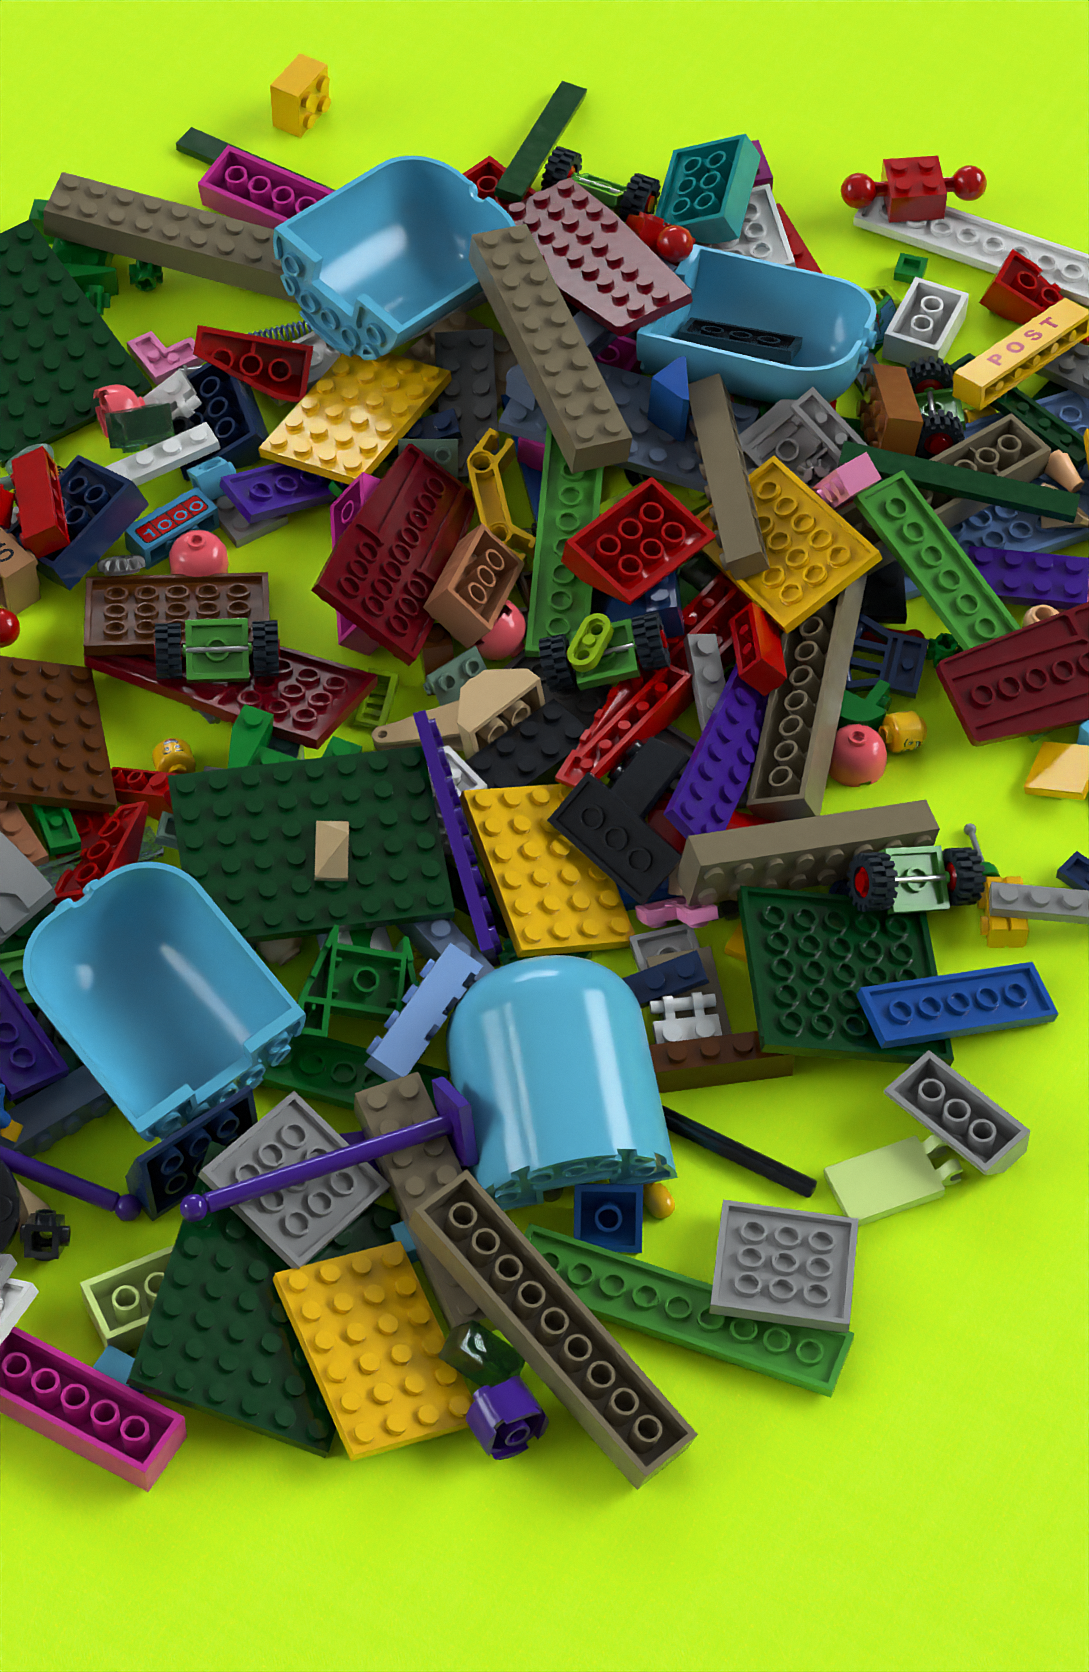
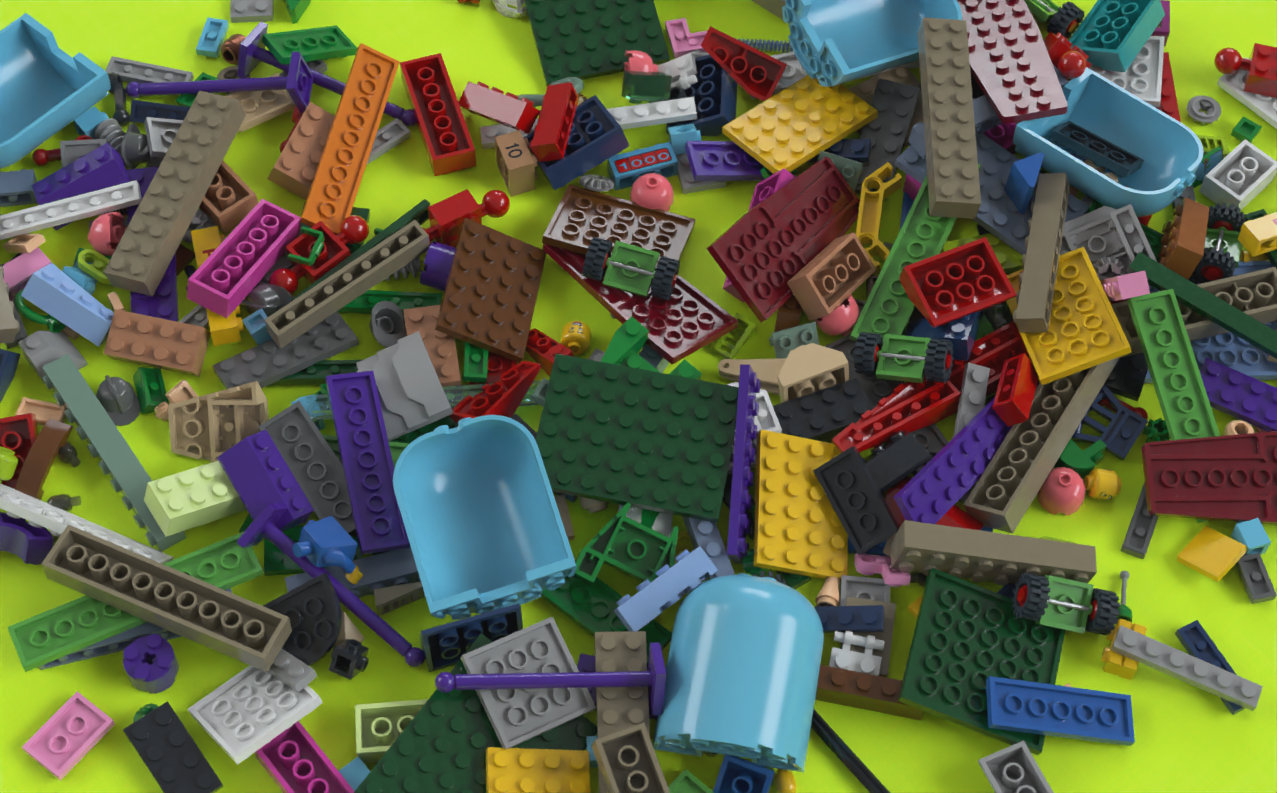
camera: 20 degrees right, 5 degrees up
(74, 1142) = (397, 596): none -> dark tan slope
(331, 851) = (647, 446): tan slope -> none
(588, 644) = (893, 347): lime plate -> none
(622, 960) = (829, 593): none -> light nougat cone
(849, 251) = (1204, 103): none -> light grey gear
(967, 766) = (1140, 529): none -> dark grey tile

